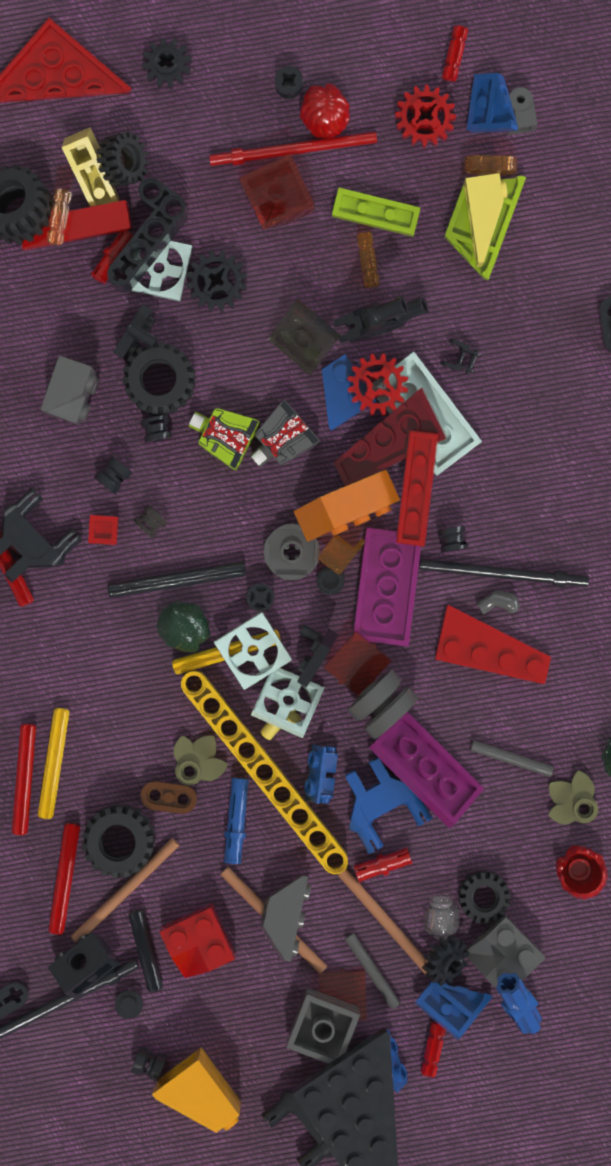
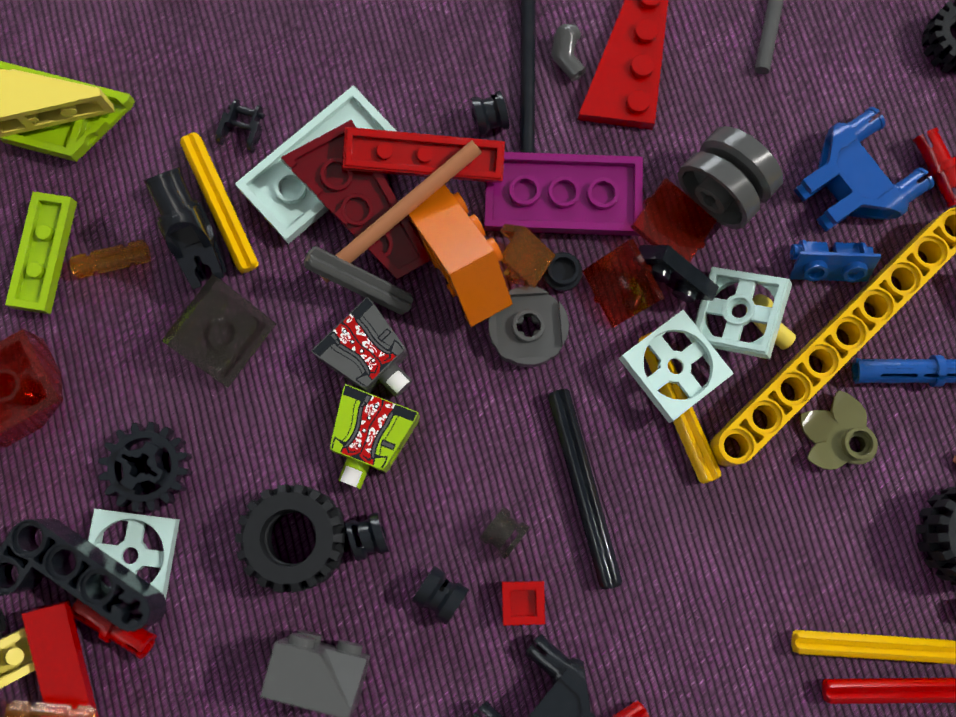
camera: 90 degrees left, 10 degrees down
(137, 331) = (219, 578): black plate -> none
(169, 797) = (903, 470): reddish brown plate -> none
(183, 626) = (652, 470): clear green hair -> none
(256, 597) = (602, 358): black wheel -> none
(313, 620) = (623, 283): none -> clear red piece
(331, 435) = (358, 280): none -> dark grey axle
(336, 396) = (286, 281): blue wing -> none
(377, 467) = (409, 203): none -> nougat piece
(389, 391) = (279, 204): red gear -> none
(404, 338) = (219, 203): none -> yellow axle
(427, 769) = (816, 110): magenta plate -> none

